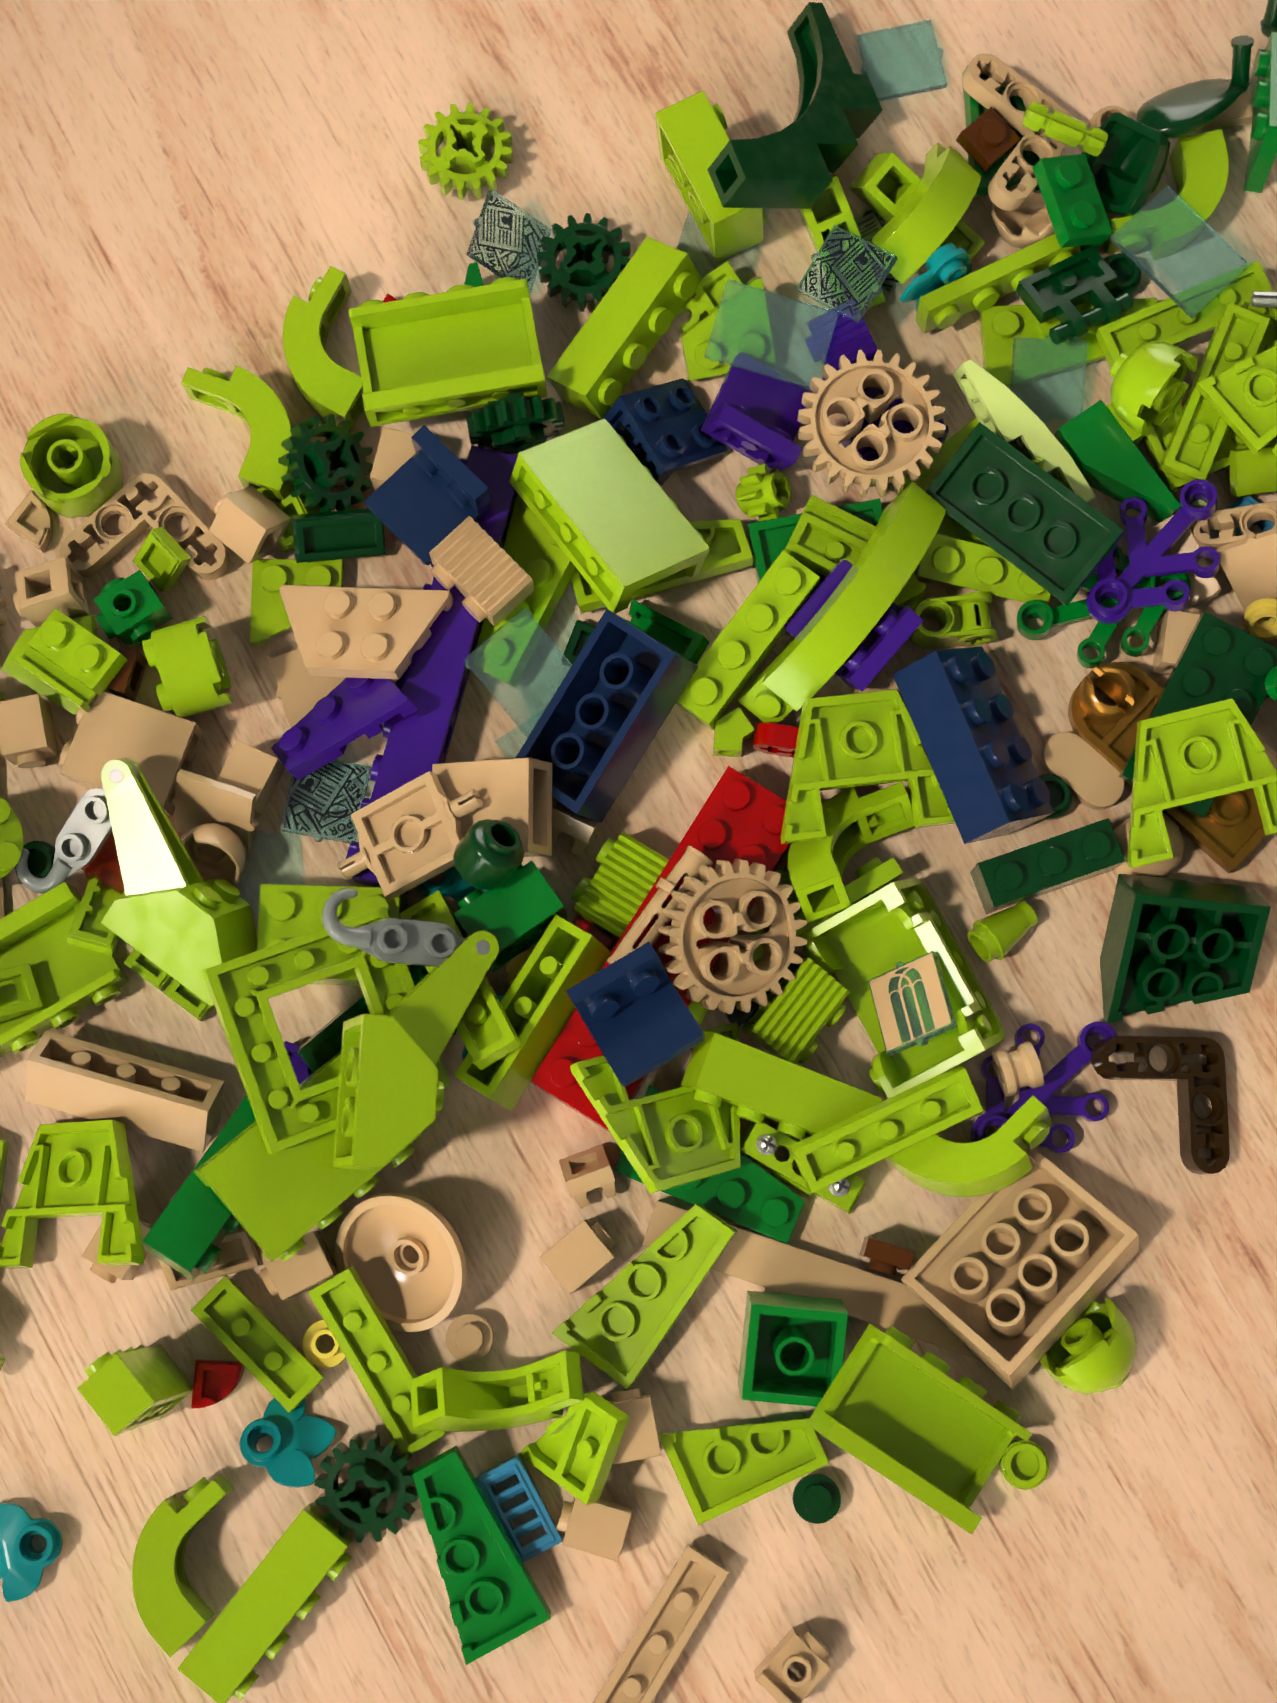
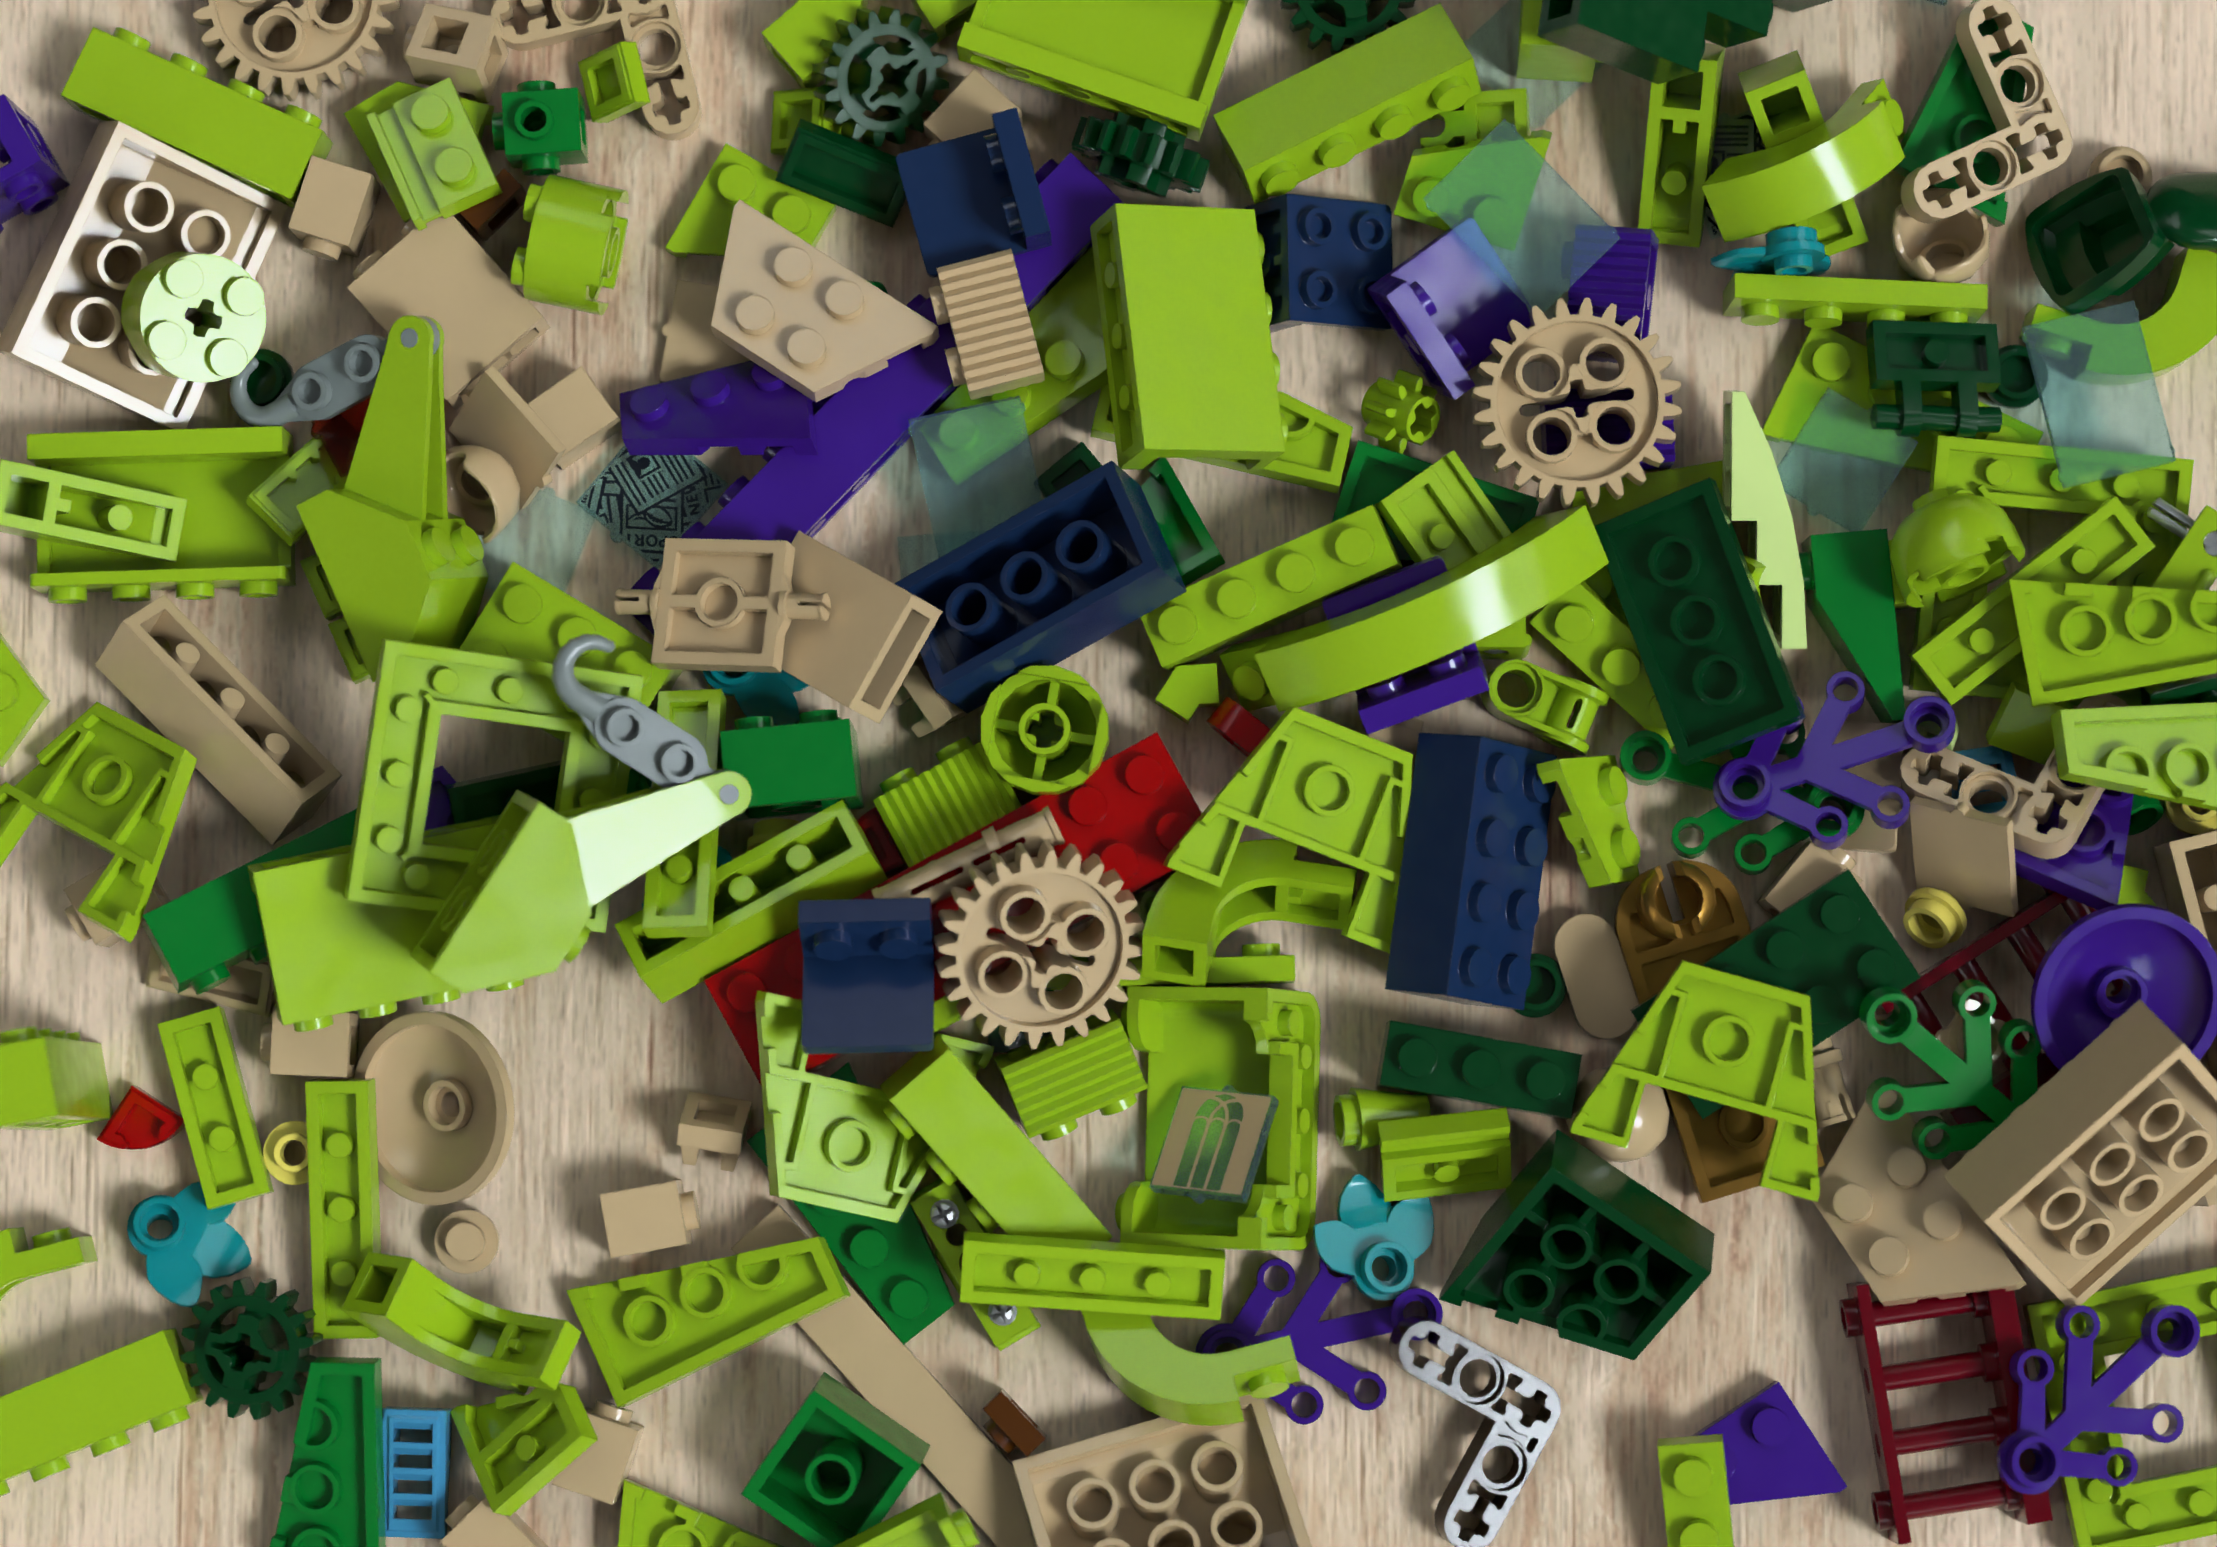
camera: 30 degrees right, 5 degrees up
(249, 524) = (743, 98): tan brick -> none
(488, 854) = (798, 685): dark green head -> none
(658, 802) = (1045, 730): none -> lime cylinder
(846, 273) = (1658, 193): clear light blue piece -> none
(988, 139) = (1946, 112): reddish brown plate -> none
(1018, 1069) = (1296, 1293): tan wheel -> none
(1028, 672) = (1597, 817): none -> lime wing
(1039, 1003) = (1372, 1230): none -> teal plate
(1057, 929) = (1445, 1154): none -> lime plate
(1064, 128) = (2046, 155): lime axle -> none
(1072, 201) = (2001, 255): green bracket -> none

